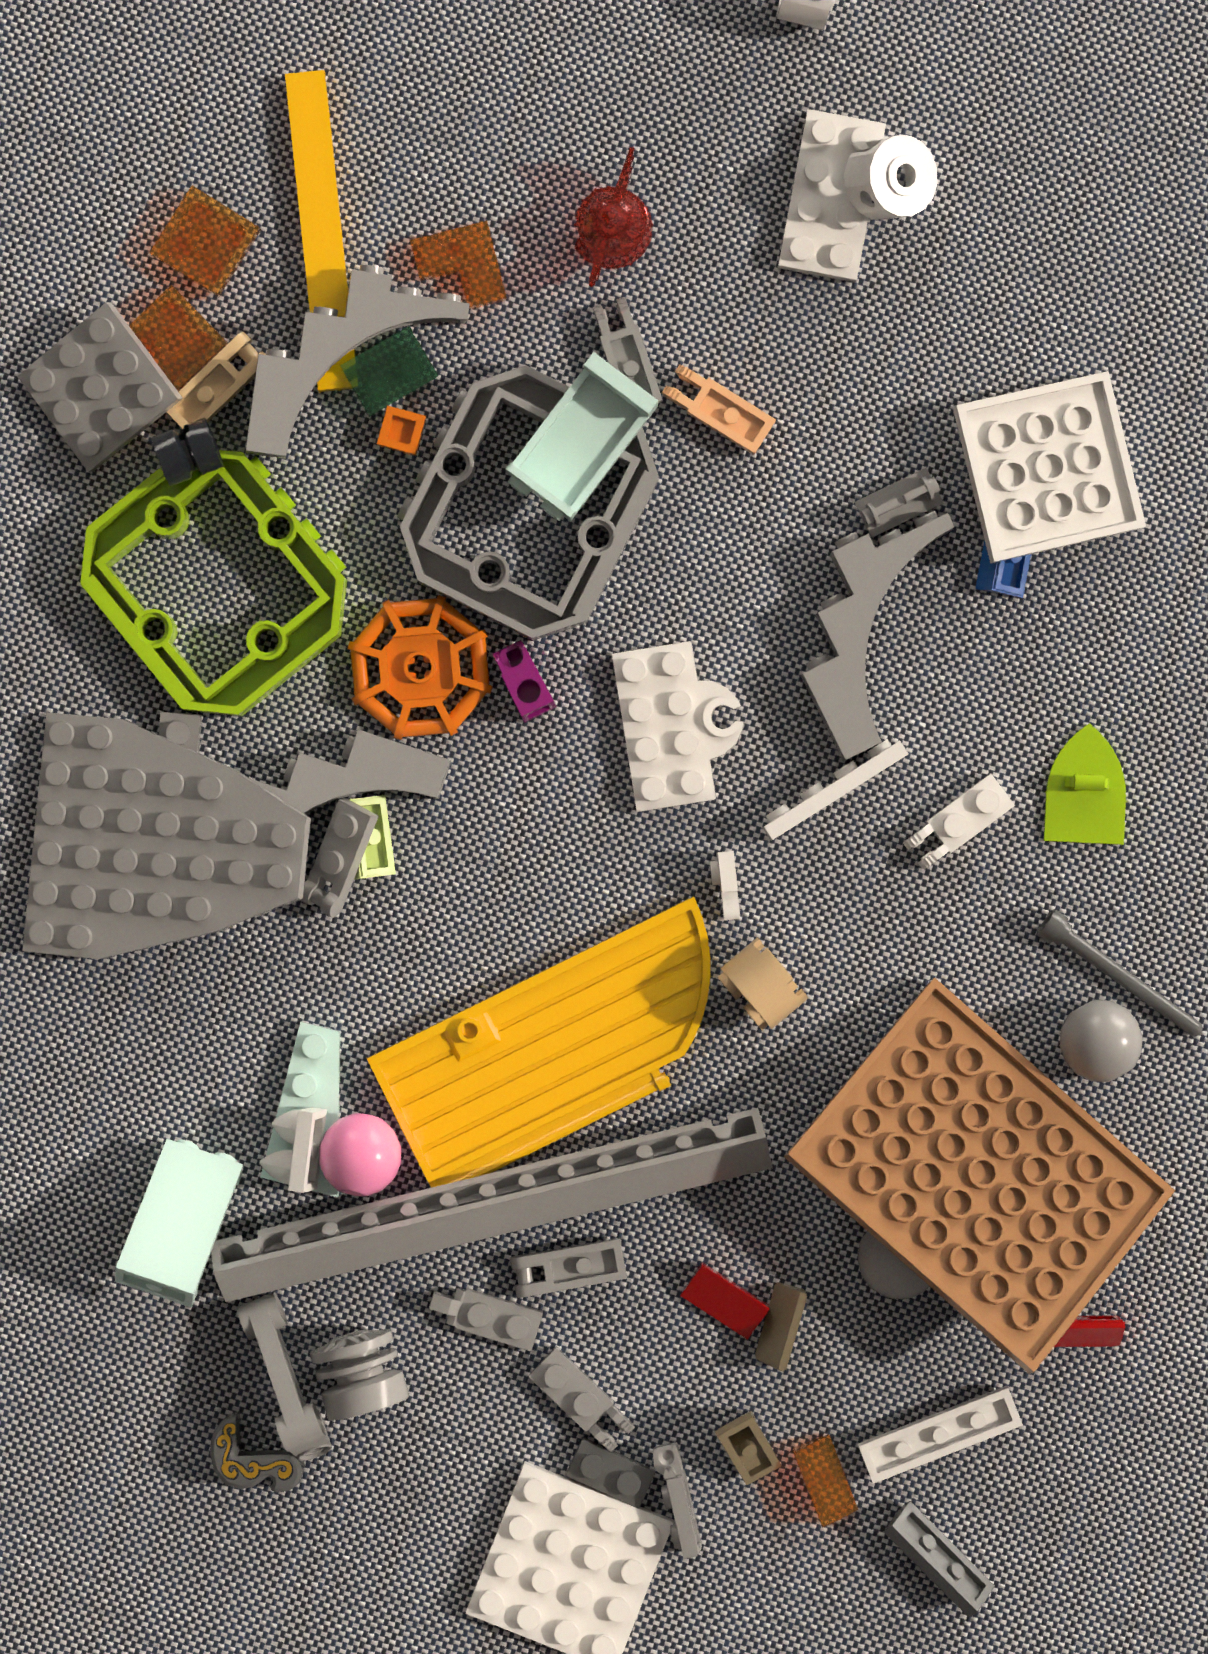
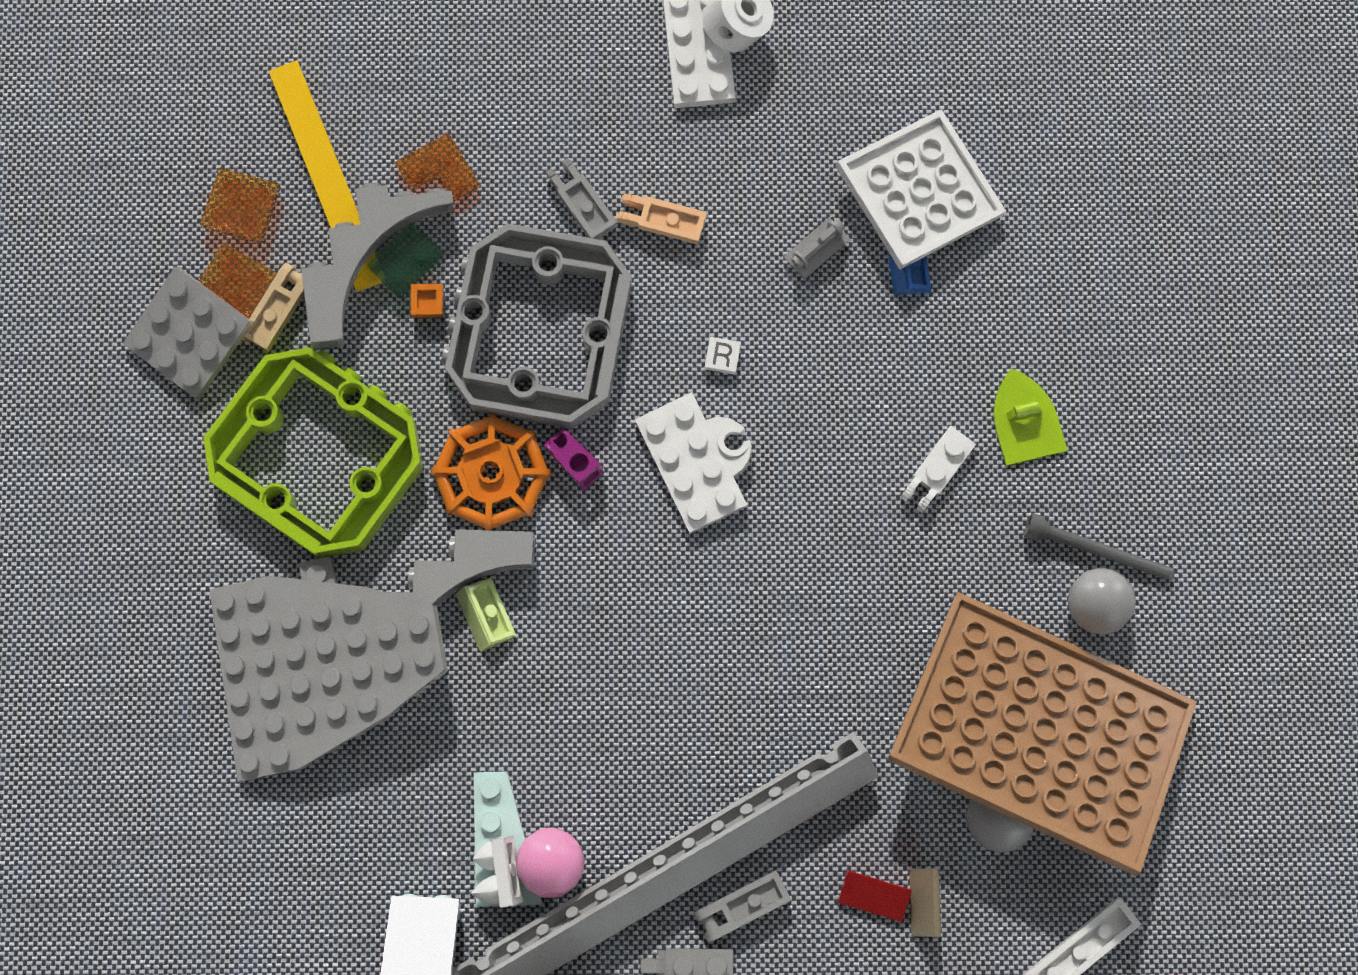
camera: 20 degrees left, 10 degrees down
(187, 452) = (265, 355): black wheel -> none
(339, 856) = (468, 633): light grey plate -> none
(550, 1049) = (676, 737): yellow door -> none
(581, 438) = (565, 261): light aqua panel -> none
(613, 225) = (543, 109): clear red helmet -> none
(724, 874) = (771, 560): white plate -> none
(742, 604) = (722, 355): none -> white tile
(762, 984) = (827, 634): tan brick -> none
(847, 779) = (843, 460): white plate -> none
(867, 572) = (814, 391): light grey arch -> none
(1094, 1332) = (1173, 832): red slope -> none

